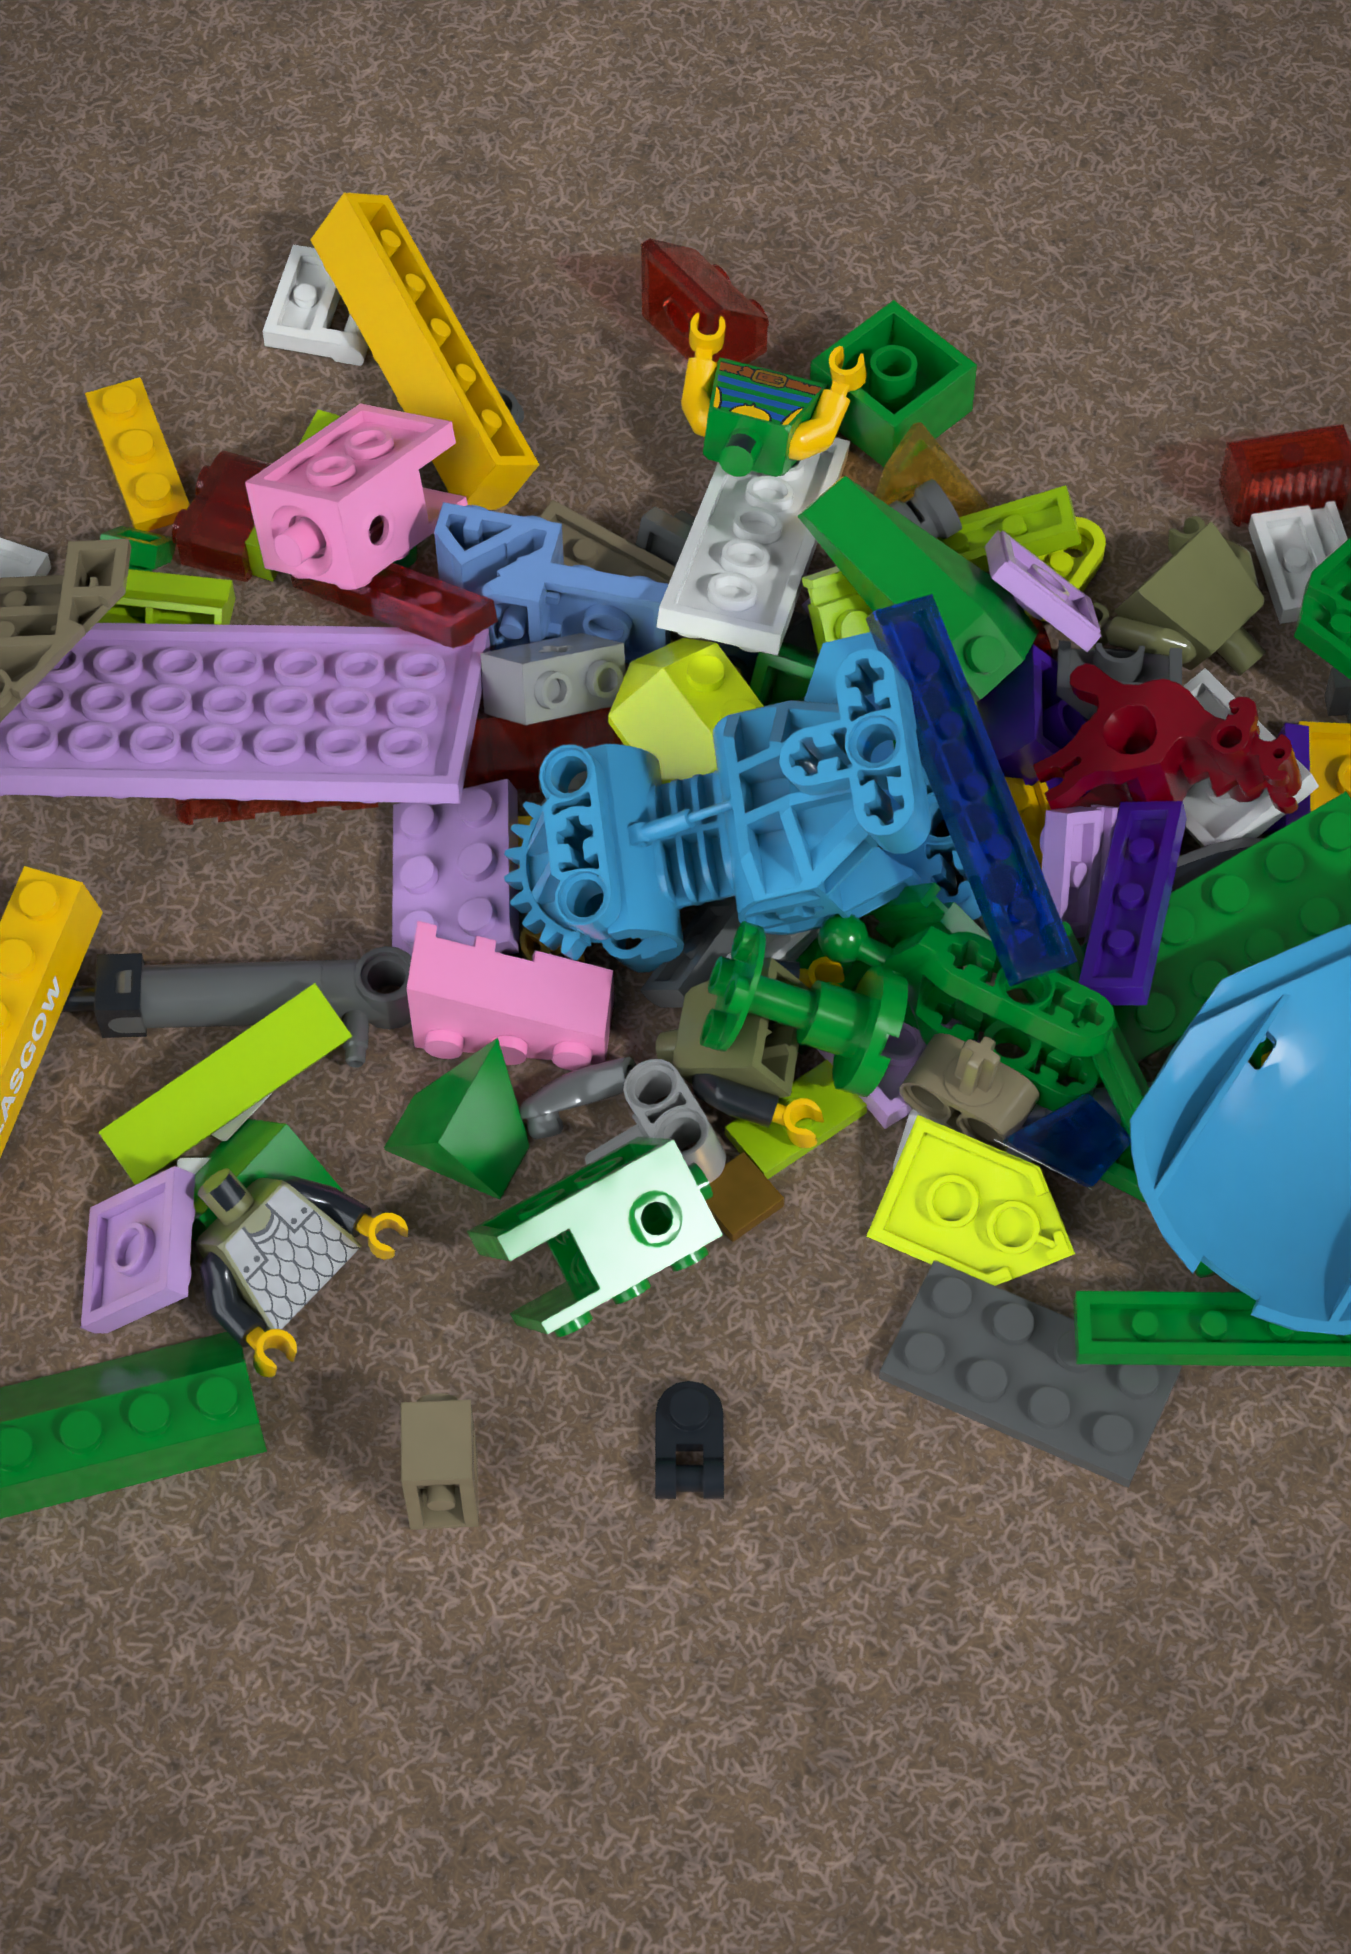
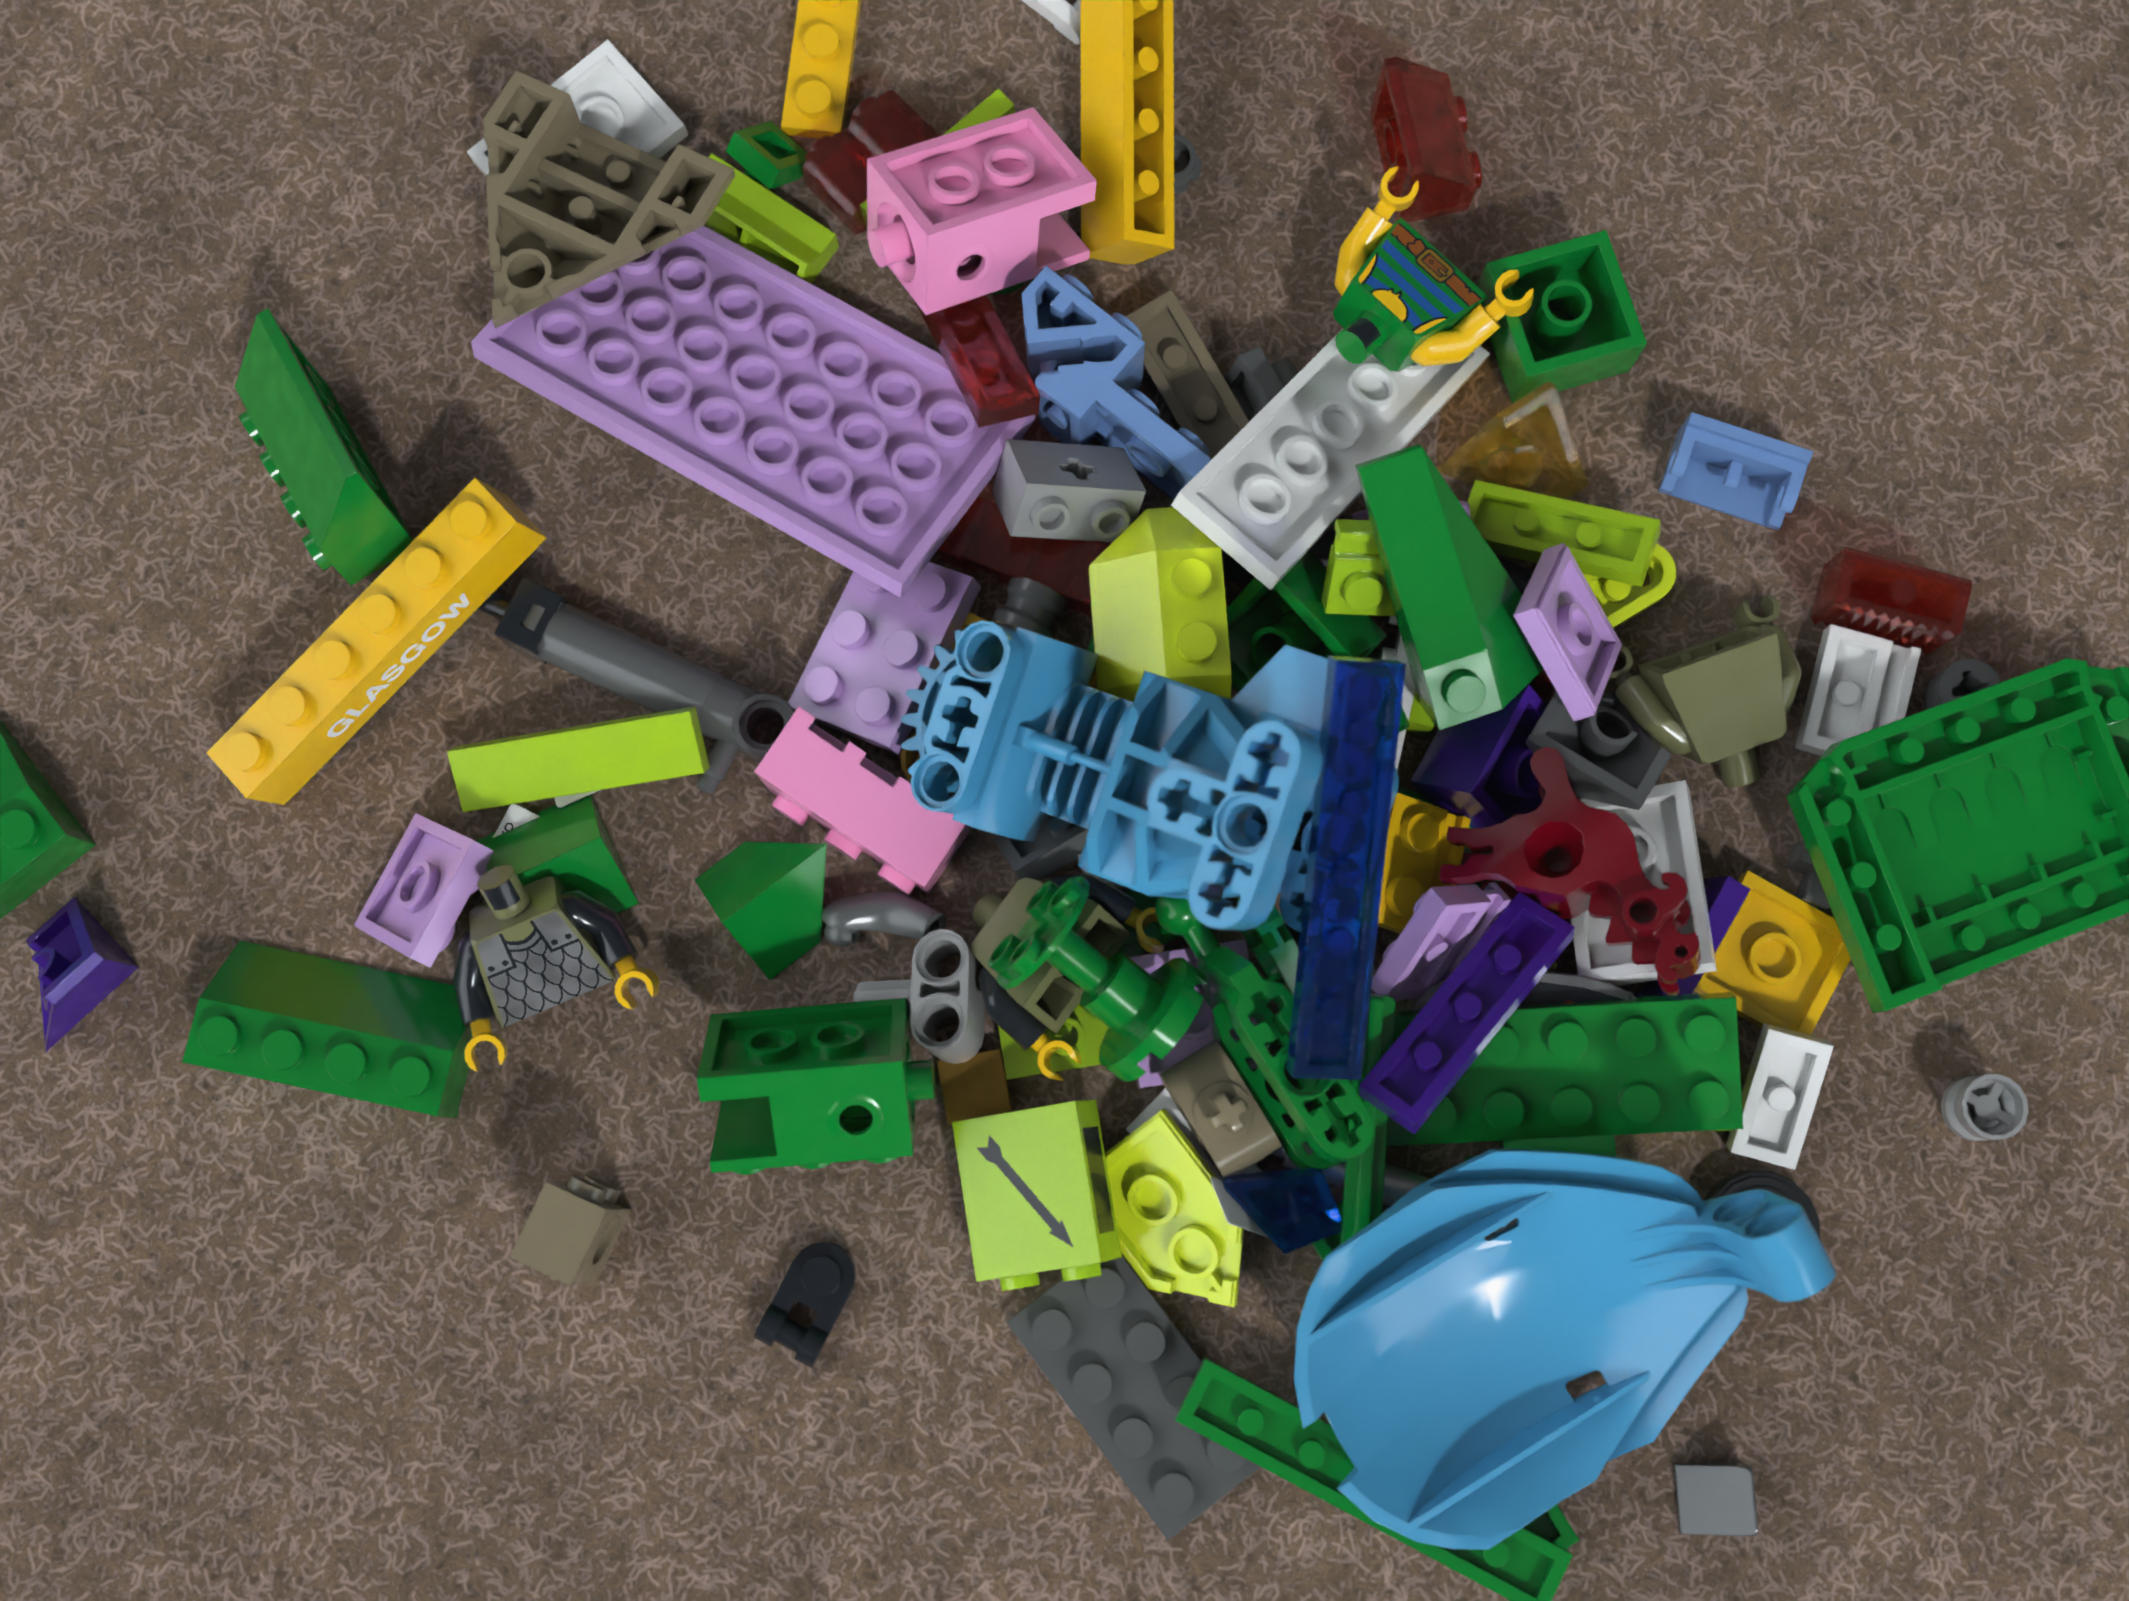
camera: 30 degrees right, 20 degrees up
(846, 1240) = (1037, 1193): none -> lime brick
(930, 510) = (1516, 484): dark grey wheel -> none
(1103, 439) = (1735, 471): none -> medium blue hinge

